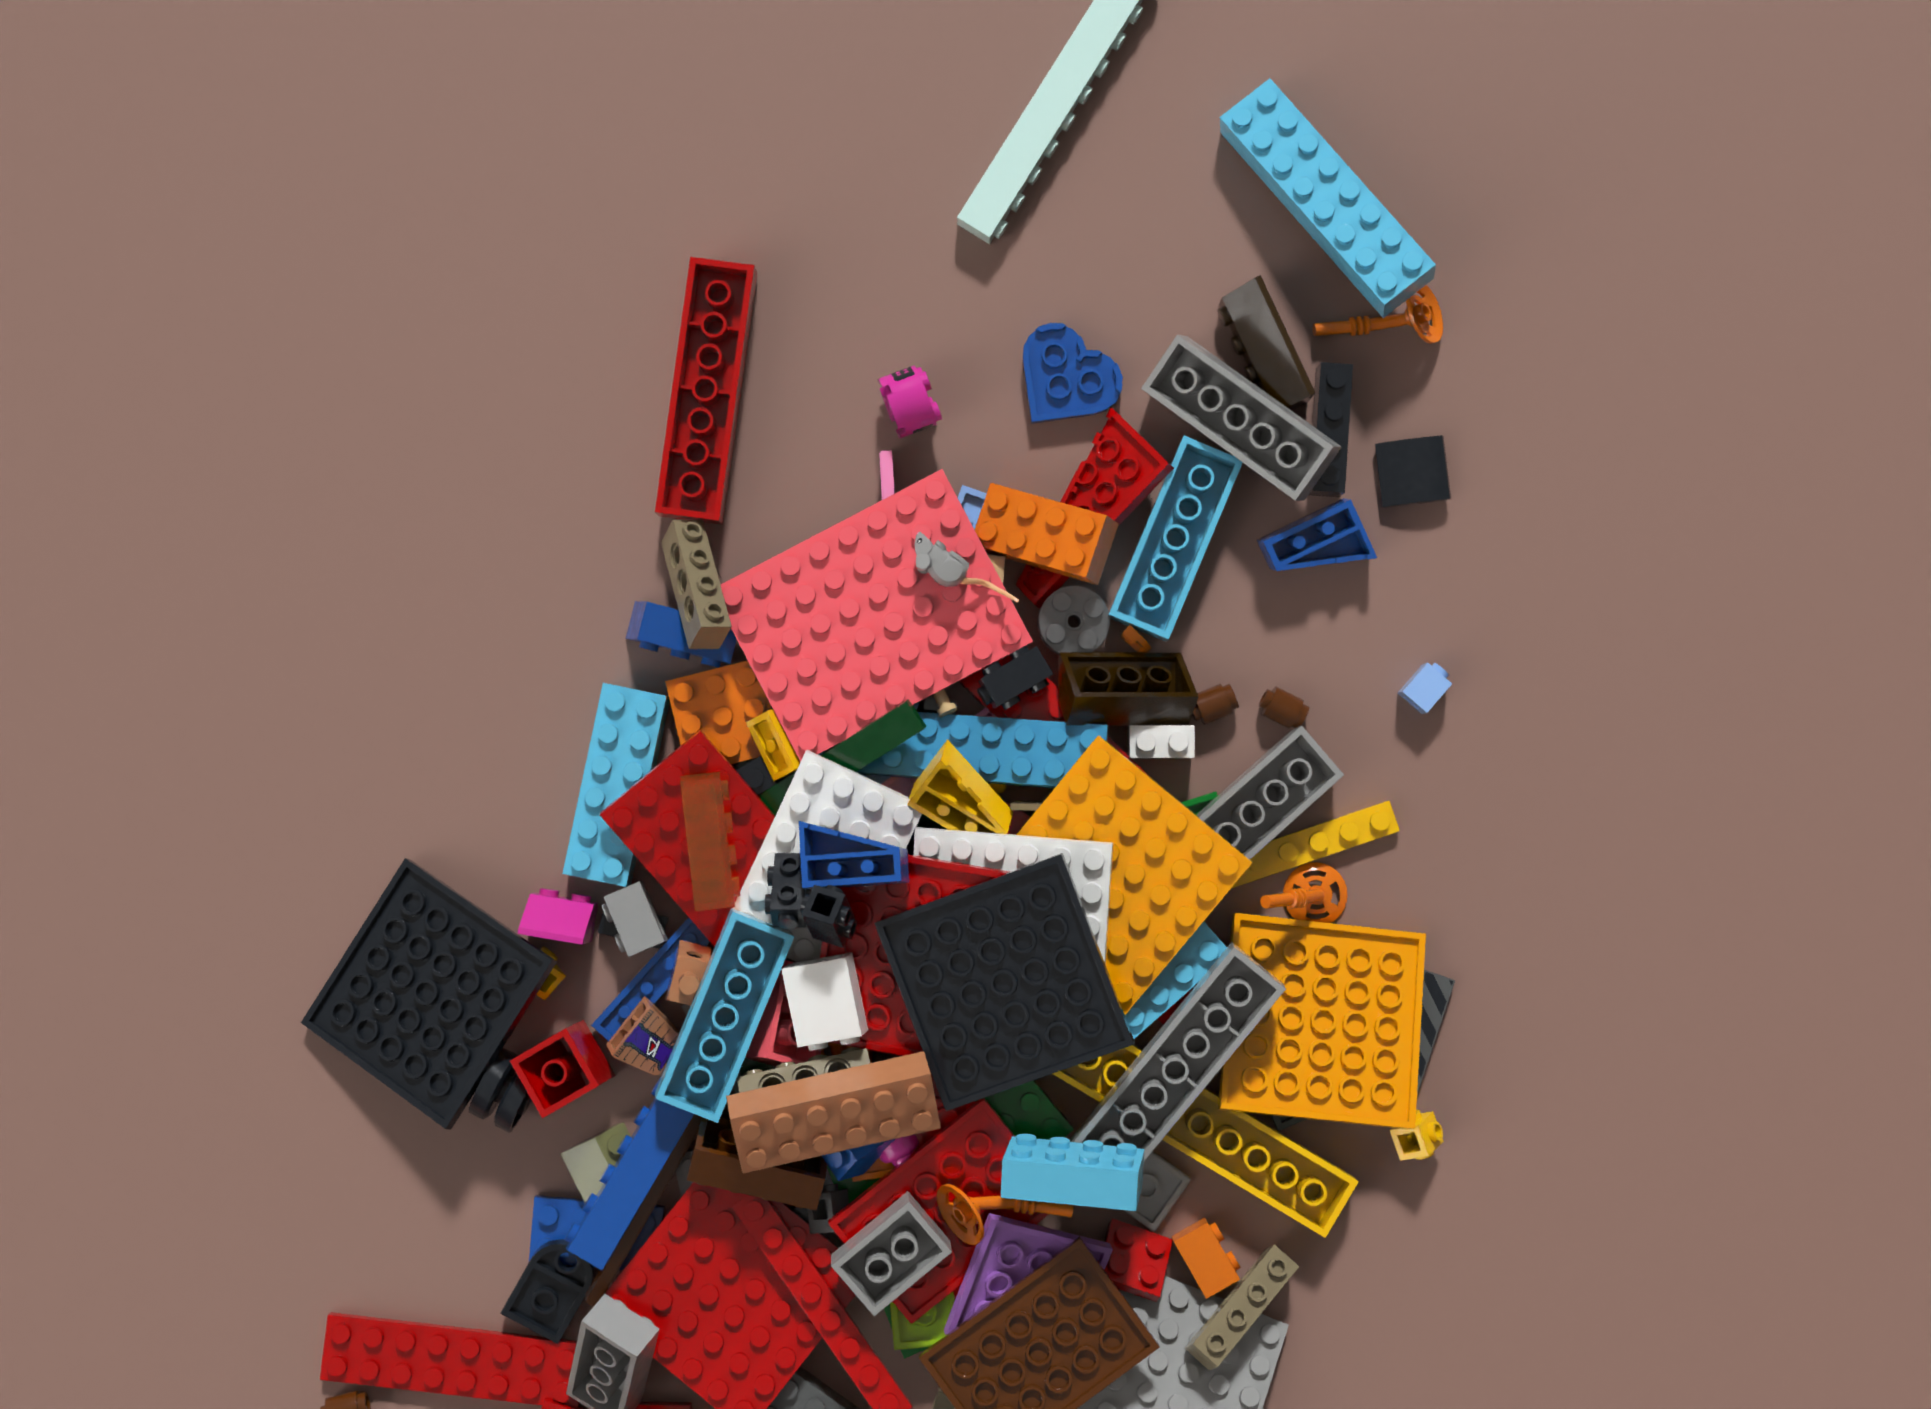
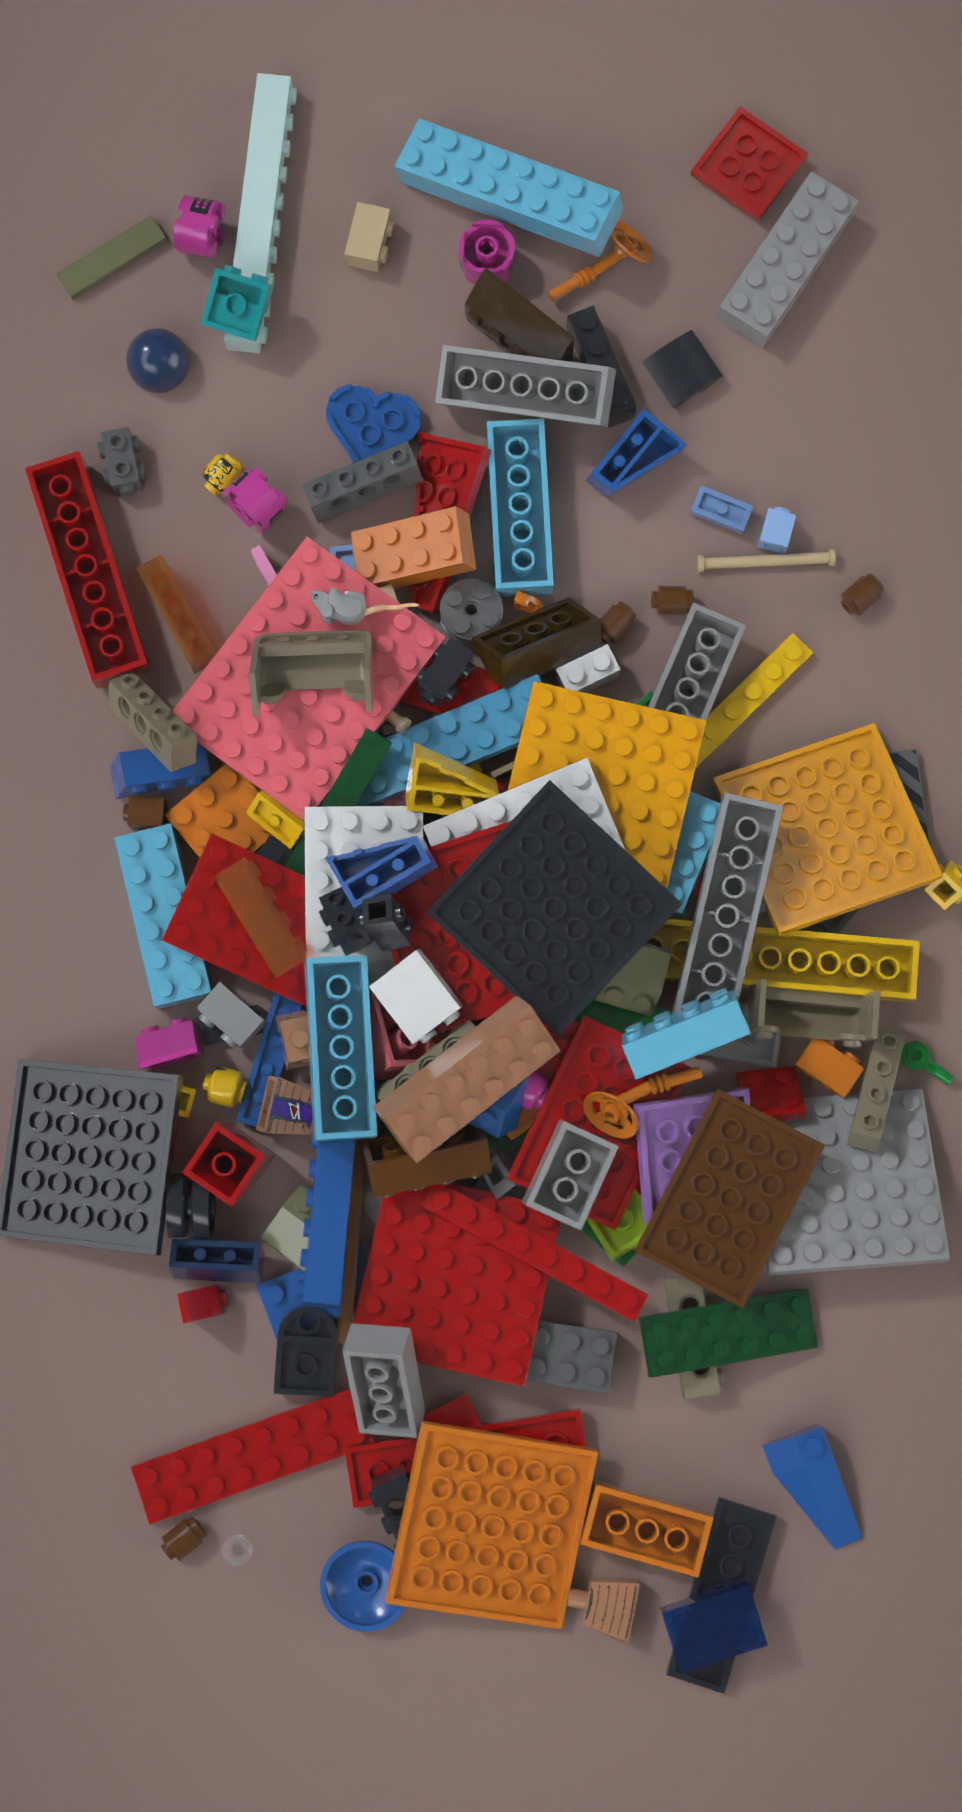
camera: 25 degrees left, 5 degrees down
(471, 1191) = (202, 1303): none -> red slope
(506, 1156) = (217, 1260): none -> dark blue brick
(596, 985) = (225, 1087): none -> yellow head
(647, 670) = (145, 812): none -> reddish brown brick
(775, 481) = (177, 613): none -> clear orange brick
(796, 283) = (123, 470): none -> dark grey brick
(880, 203) = (157, 360): none -> dark blue piece
(882, 604) = (311, 662): none -> dark tan windscreen
(885, 70) = (111, 257): none -> olive tile
(890, 355) = (221, 472): none -> yellow head
(988, 187) = (237, 302): none -> teal plate
(989, 84) = (199, 226): none -> dark pink brick
(1027, 435) = (362, 482): none -> dark grey brick
(1059, 1093) = (639, 981): none -> olive slope
(1158, 177) = (368, 237): none -> tan brick
(1216, 1204) = (813, 1014): none -> dark tan windscreen
(1258, 241) = (482, 238): none -> dark pink brick
(1300, 900) = (755, 736): orange dish -> none
(1300, 1290) = (917, 1056): none -> green plate
(1380, 638) = (721, 509): none -> medium blue plate
(1399, 712) = (766, 560): none -> tan bar
(1478, 796) = (861, 594): none -> reddish brown brick
(1577, 409) = (787, 259): none -> light grey brick
(1588, 287) = (749, 163): none -> red plate

